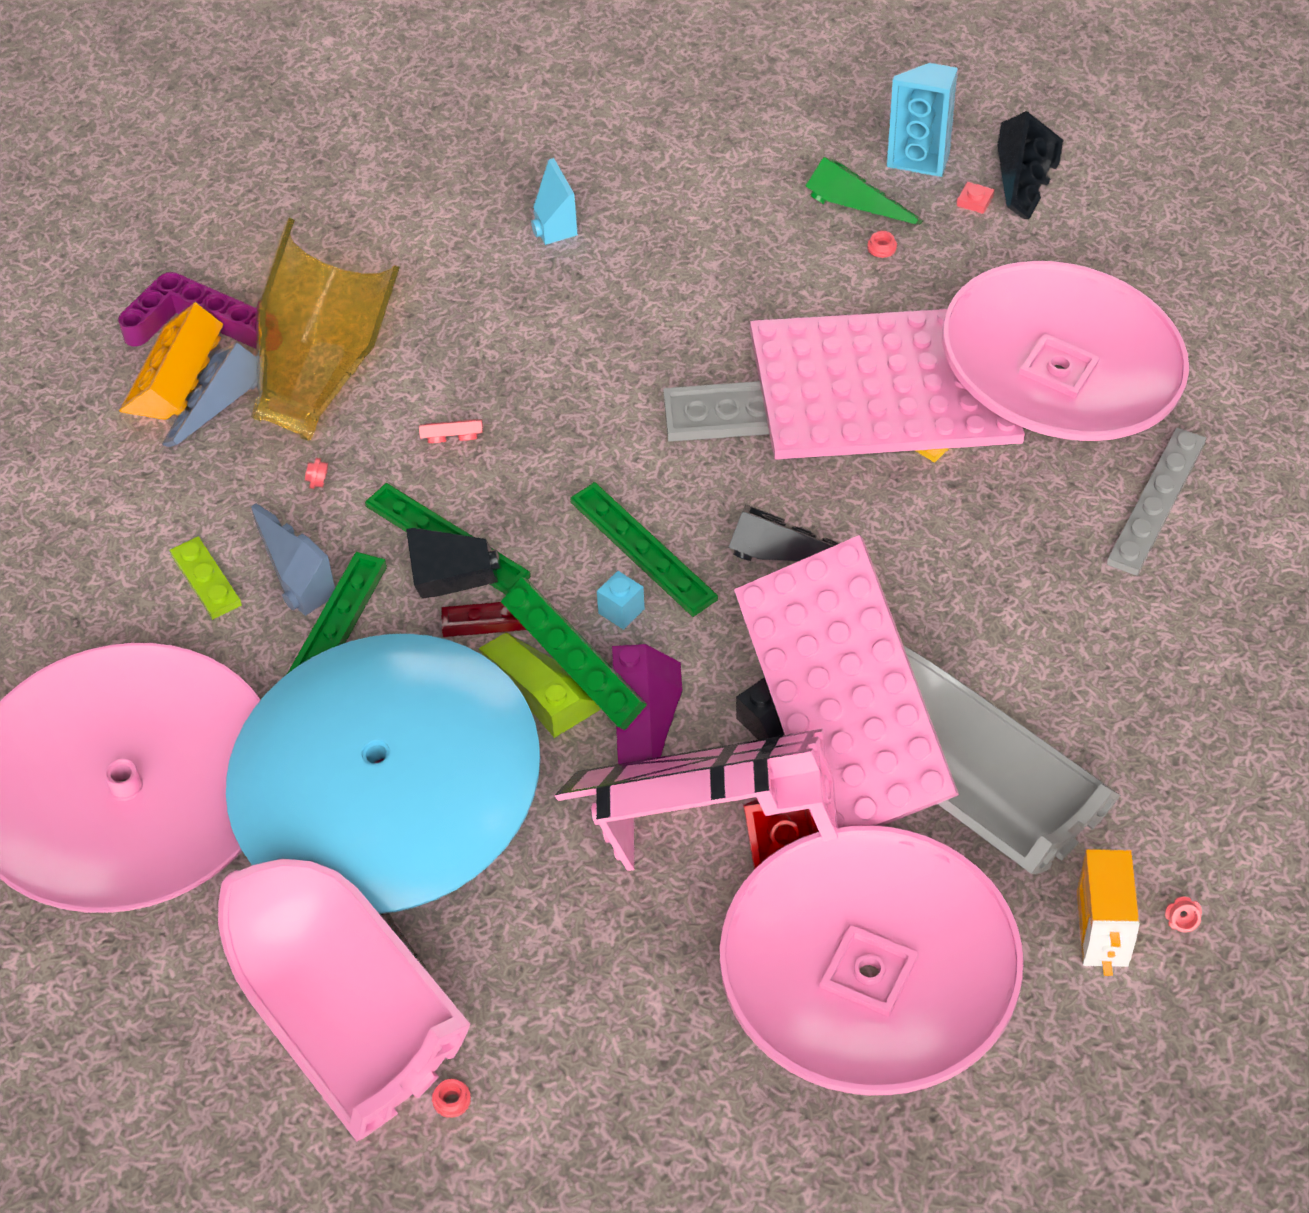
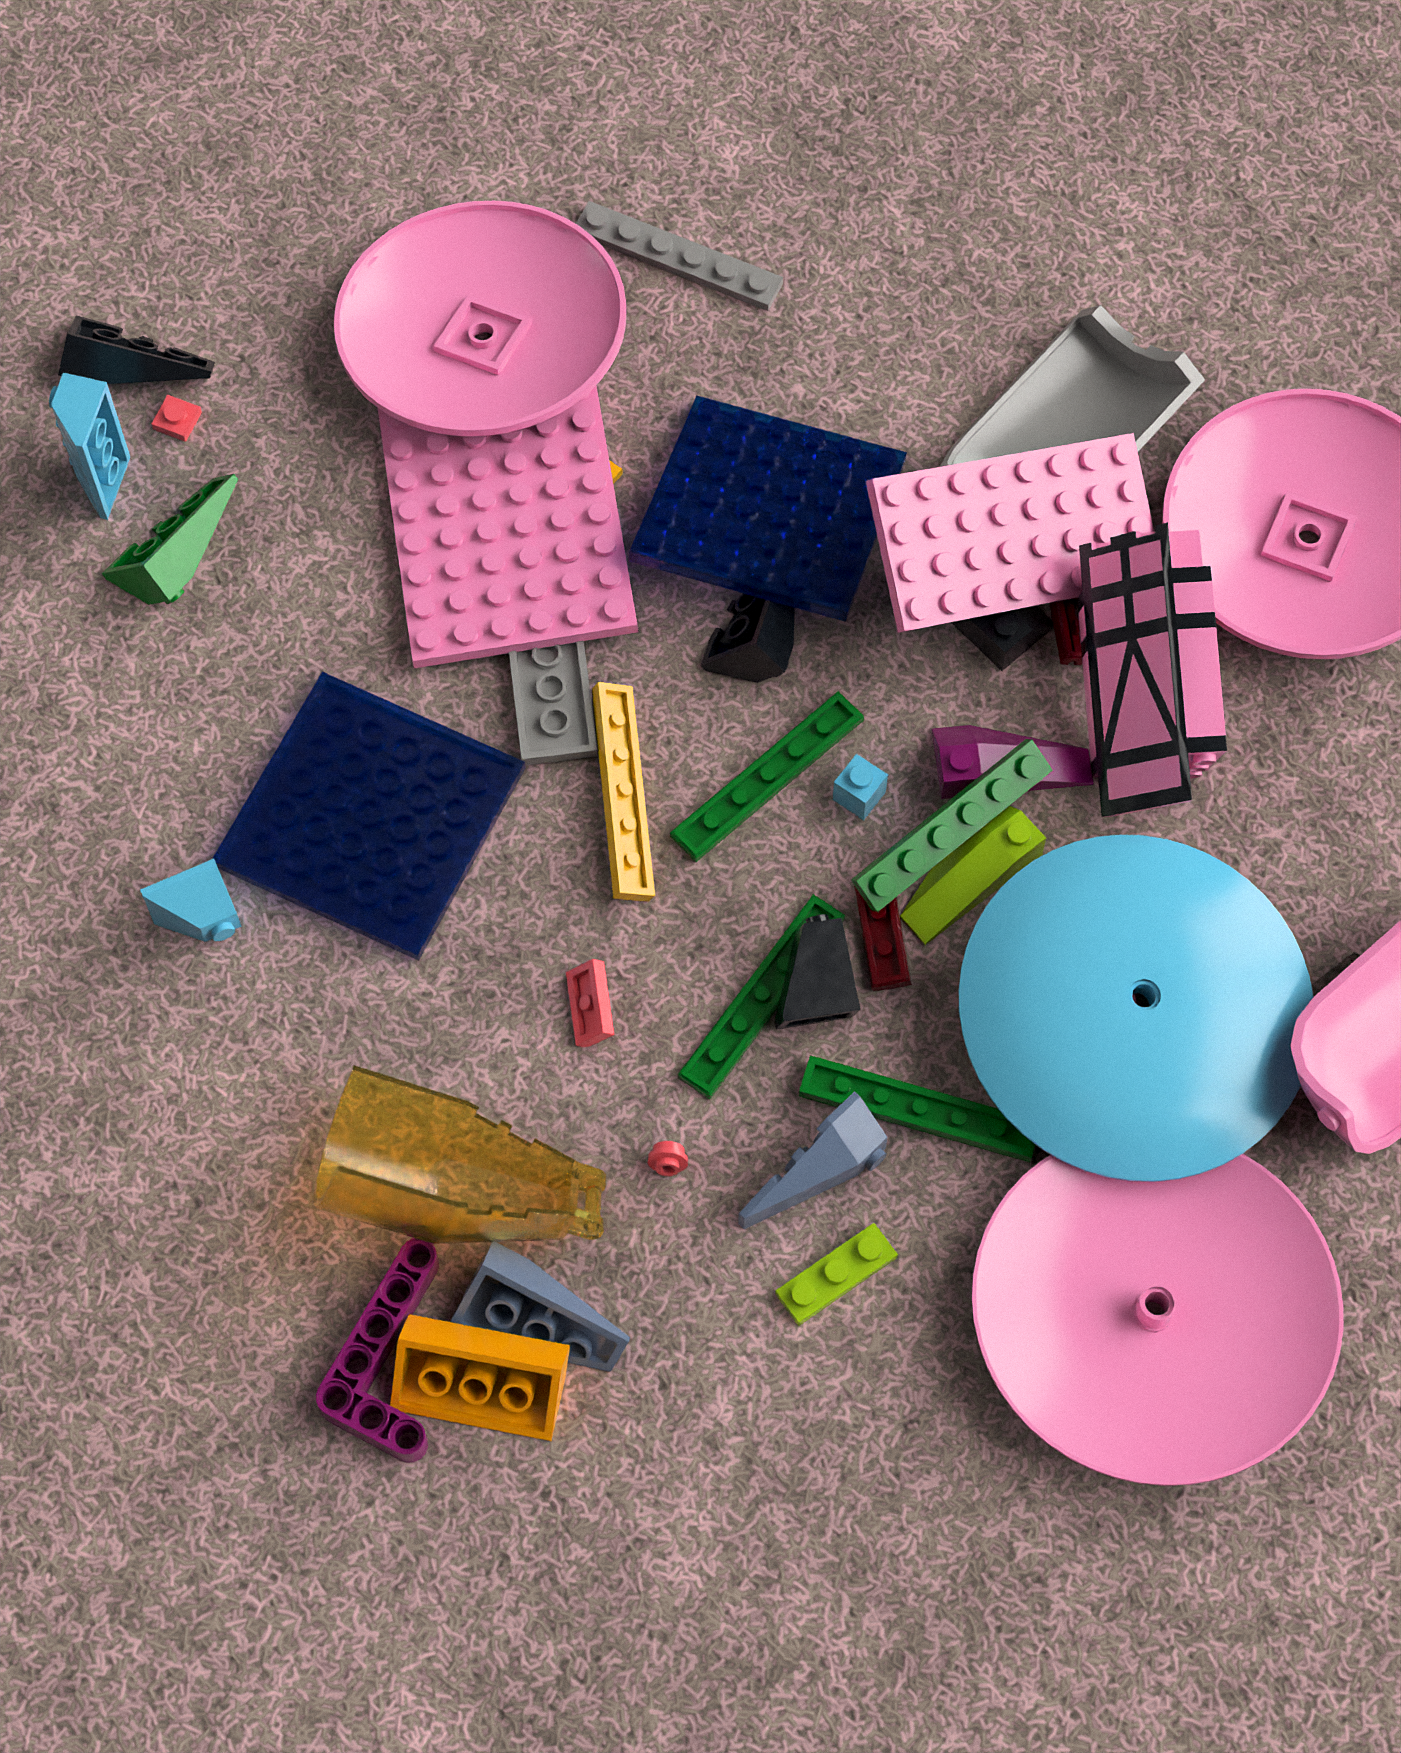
camera: 95 degrees left, 15 degrees up
(625, 307) = (369, 815): none -> clear blue plate
(632, 450) = (623, 792): none -> yellow plate
(882, 244) = (259, 513): coral plate -> none
(920, 530) = (766, 508): none -> clear blue plate
(1107, 909) = (1235, 318): light orange piece -> none
(1190, 920) = (1213, 266): coral plate -> none

